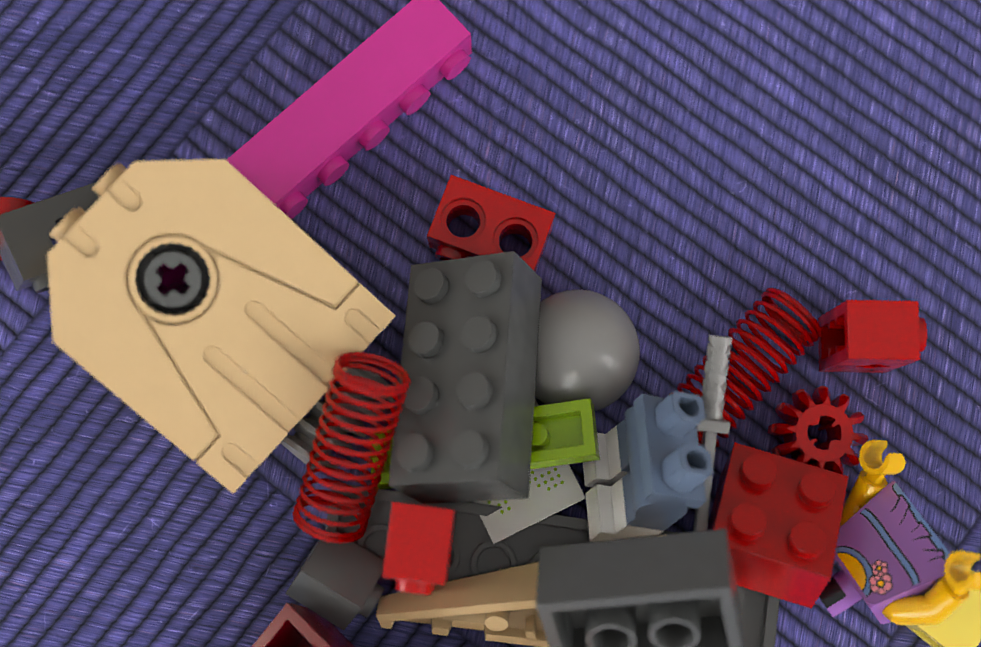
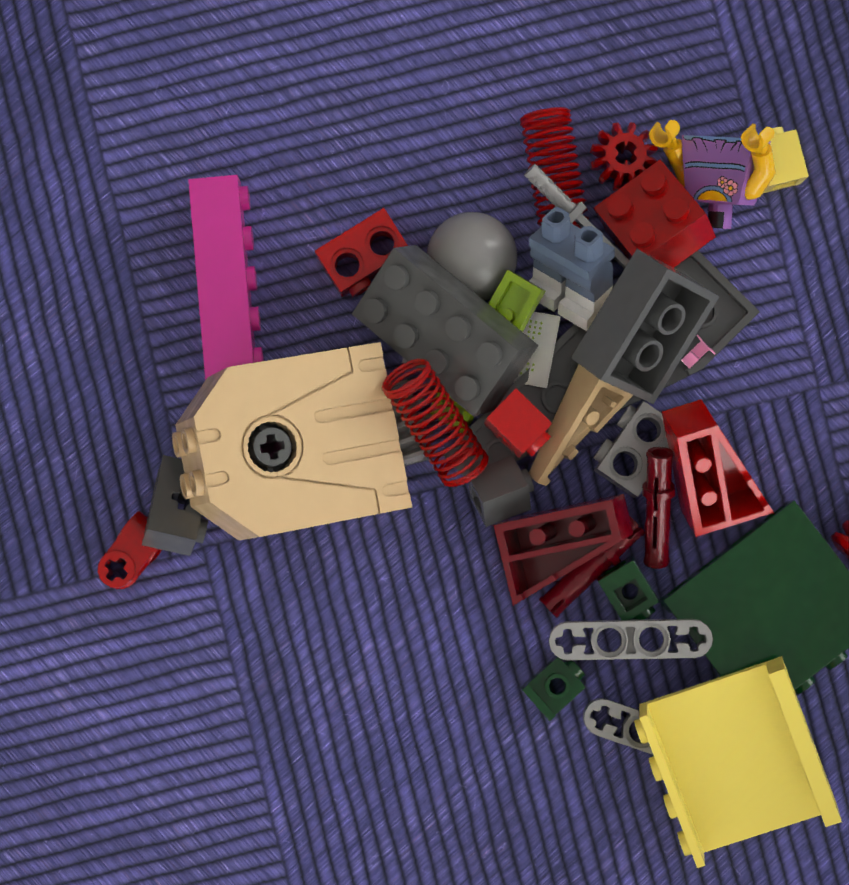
camera: 55 degrees left, 5 degrees up
(871, 336) = (592, 84): red brick -> none

